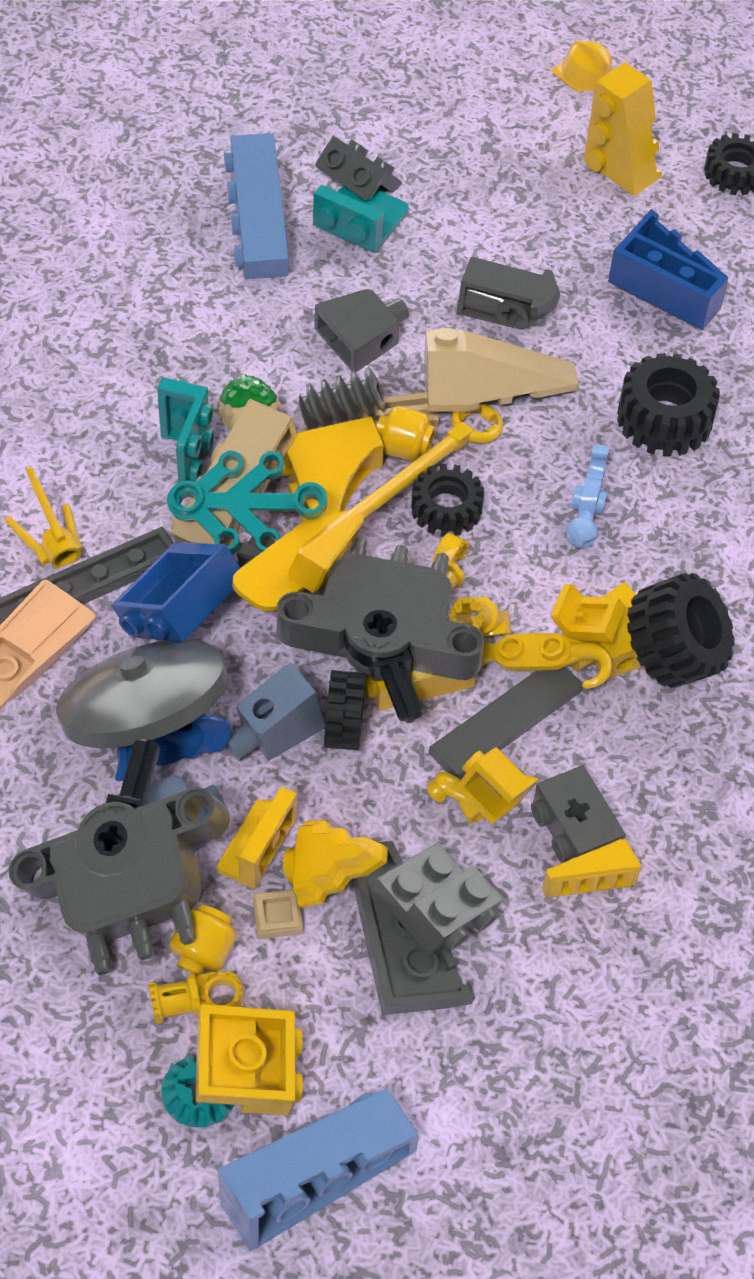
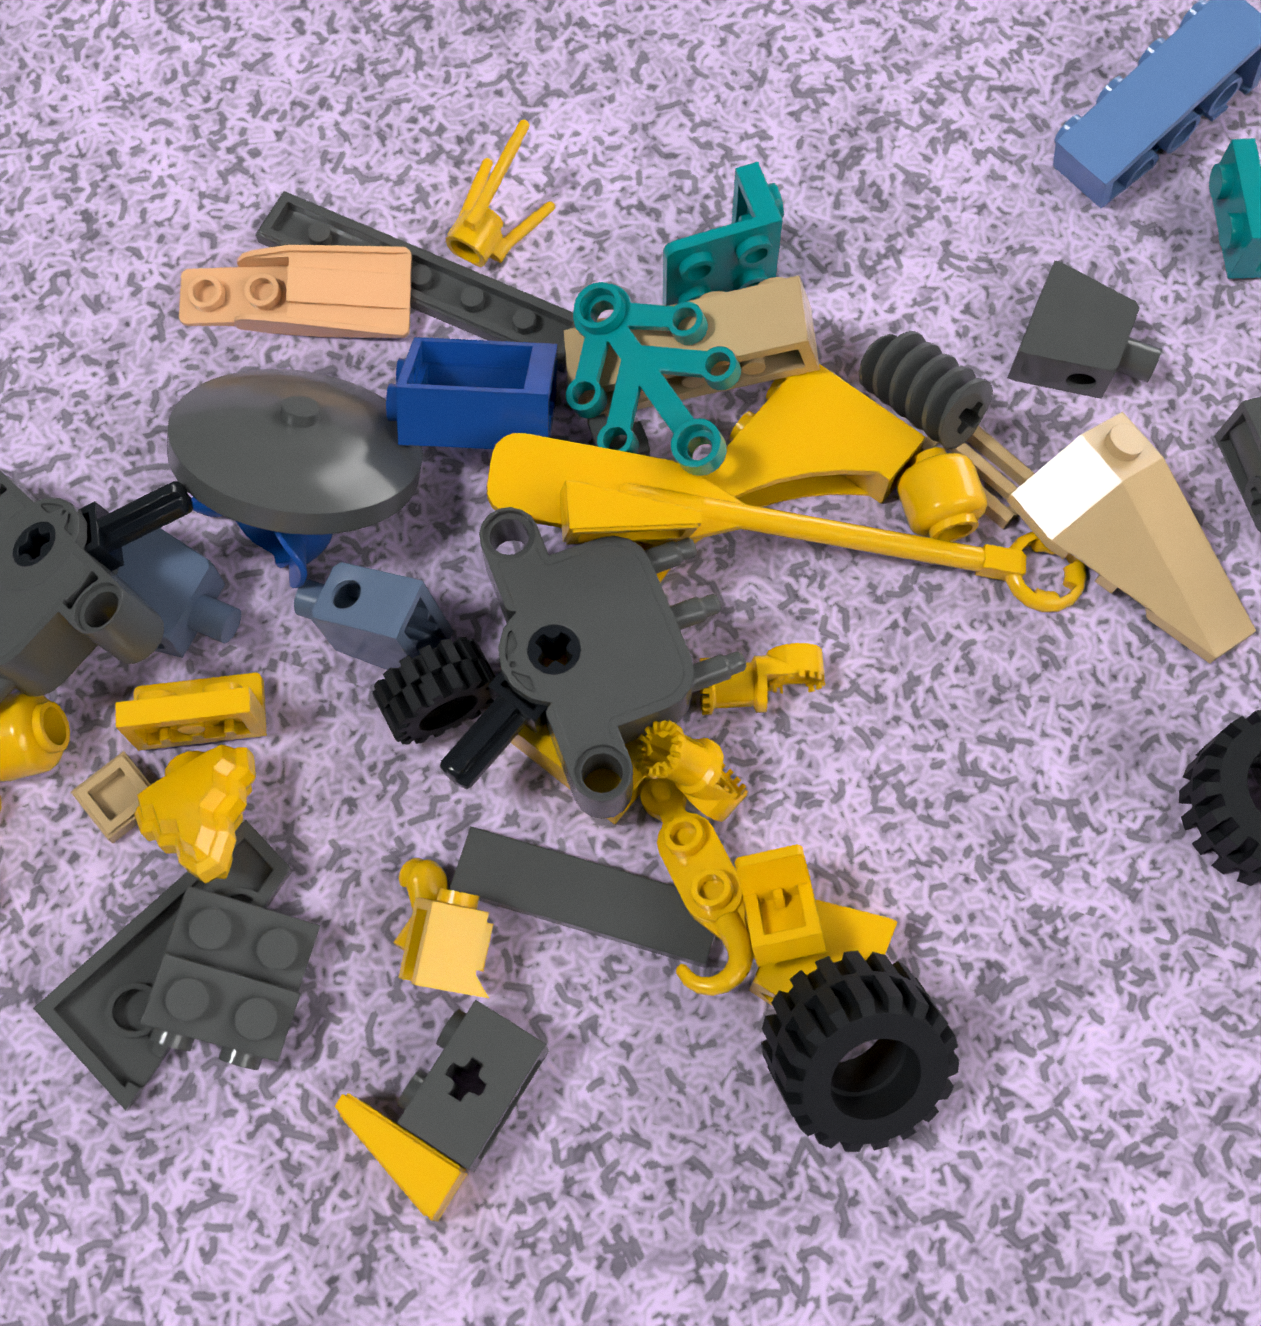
camera: 60 degrees right, 15 degrees up
(238, 393) = (838, 288): green piece -> none
(448, 482) = (891, 580): black tyre -> none
(589, 500) = (1024, 789): light blue piece -> none

